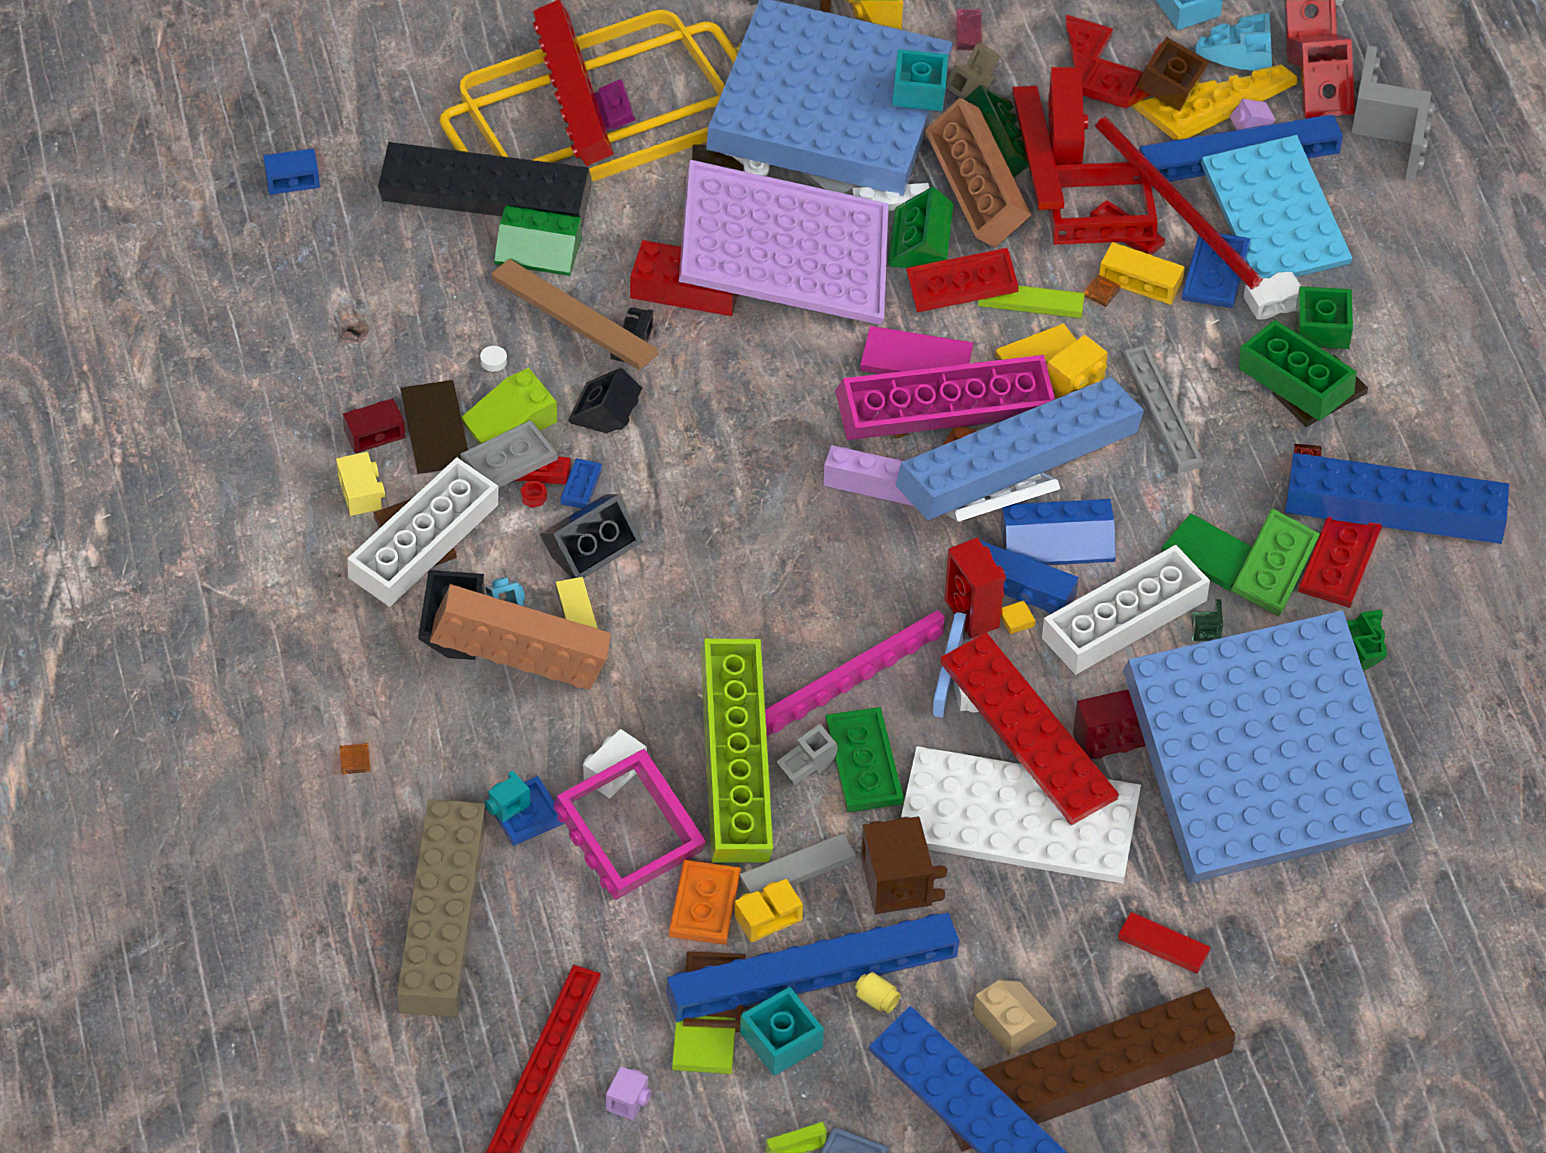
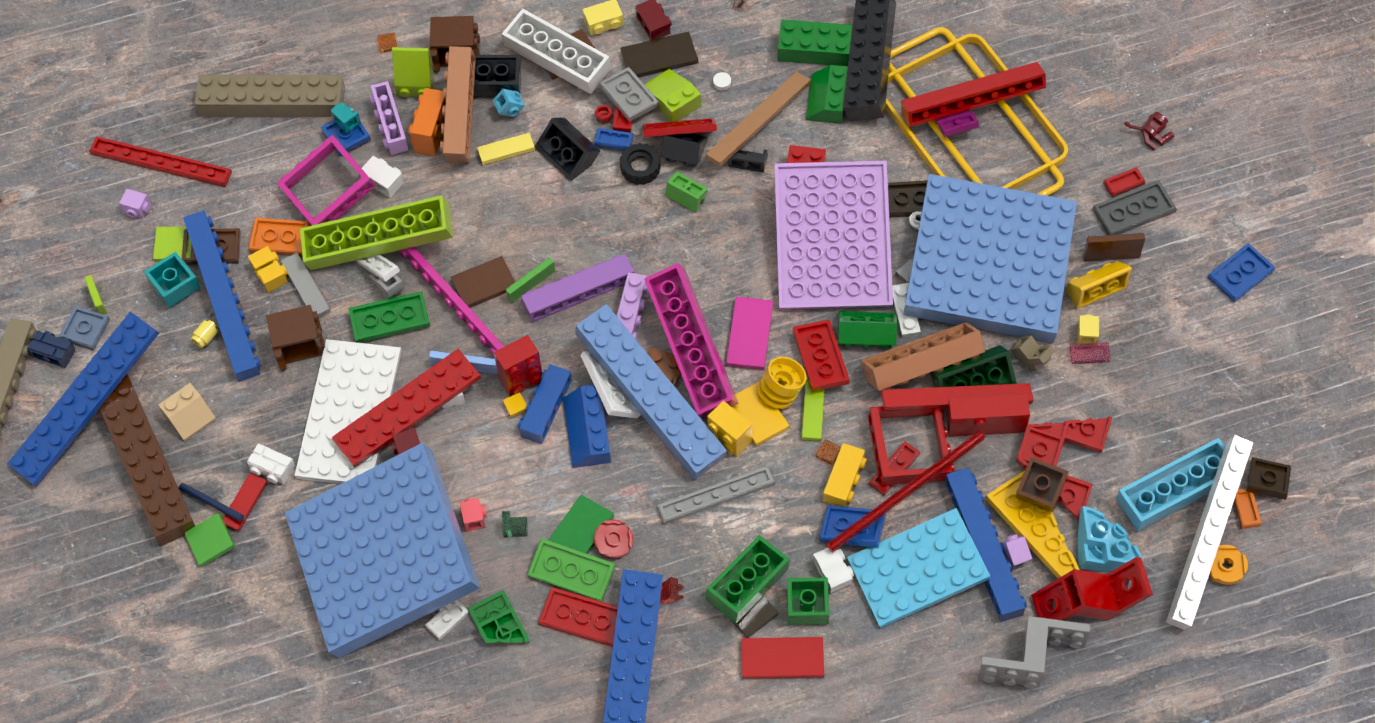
camera: 90 degrees right, 10 degrees up
(384, 659) = (454, 32): none -> reddish brown container
(442, 707) = (412, 71): none -> lime slope
(448, 247) = (814, 42): none -> green brick
(512, 746) = (388, 115): none -> lavender brick
(530, 691) = (427, 122): none -> orange brick
(578, 401) = (679, 127): none -> red tile
(628, 472) = (636, 151): none -> black tyre
(684, 404) = (685, 191): none -> bright green hinge
(788, 755) = (379, 266): none -> white tile
(808, 645) = (483, 282): none -> reddish brown tile
(816, 588) = (530, 280): none -> bright green tile
(833, 534) = (576, 288): none -> medium lavender brick
(920, 80) = (991, 301): teal brick -> none
(939, 22) = (1087, 329): none -> light yellow brick
(1010, 313) = (781, 382): none -> yellow wheel
(1106, 904) = (270, 464): none -> white brick
(1125, 609) = (516, 468): white brick -> none
(1171, 972) = (211, 502): none -> dark blue bar
(1229, 515) = (613, 539): none -> tile
(1229, 978) = (210, 539): none -> bright green tile
(1395, 357) = (782, 658): none -> red tile

